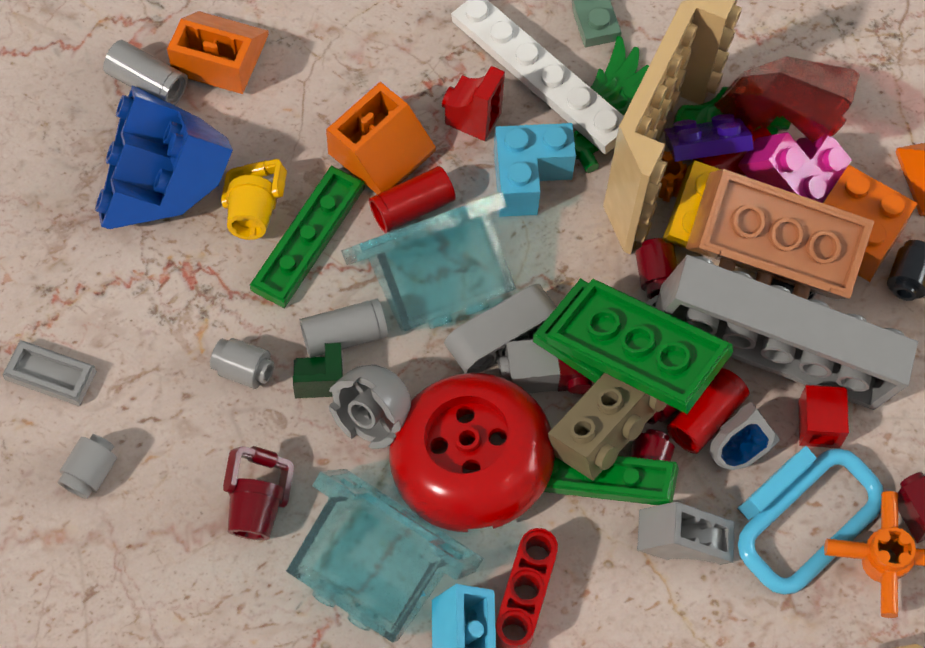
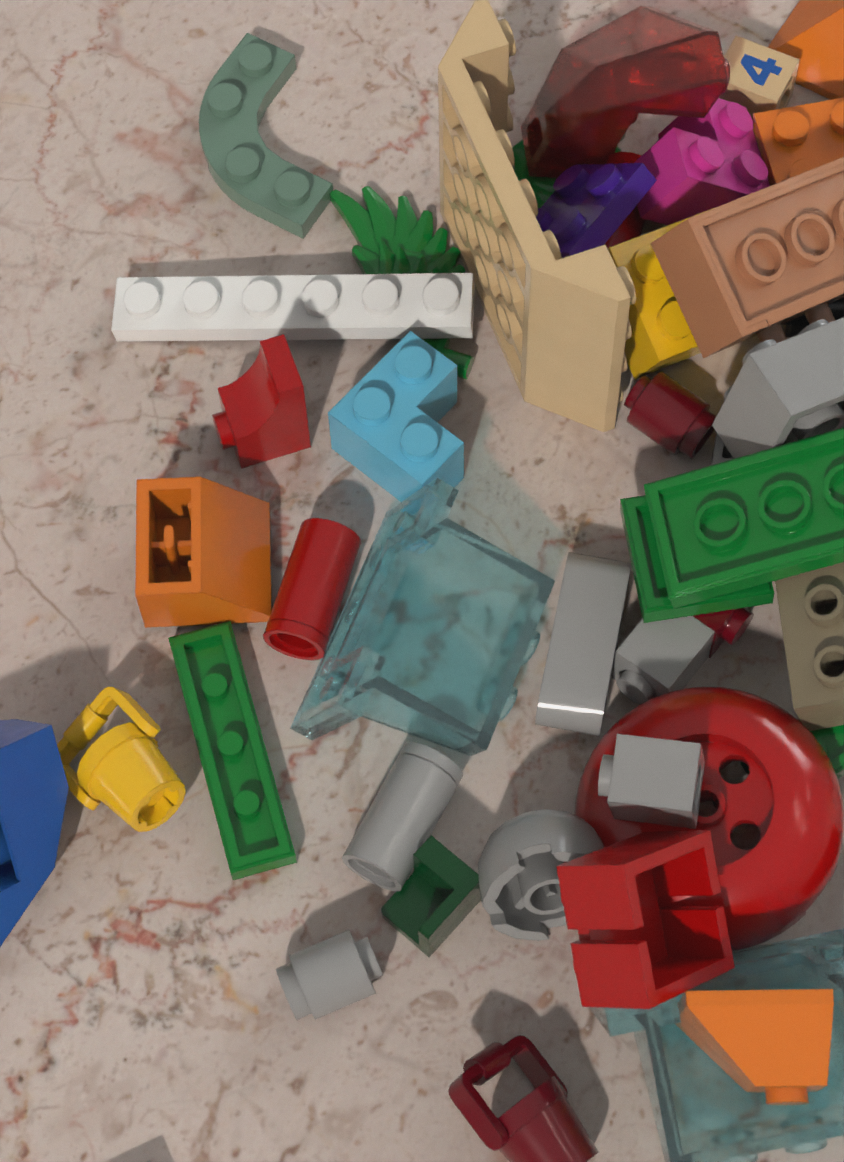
camera: 40 degrees left, 0 degrees up
(370, 452) = (627, 944): none -> red piece
(382, 556) = (764, 1038): none -> orange slope
(448, 402) = (653, 780): none -> light grey brick
(875, 152) = (759, 76): none -> tan brick

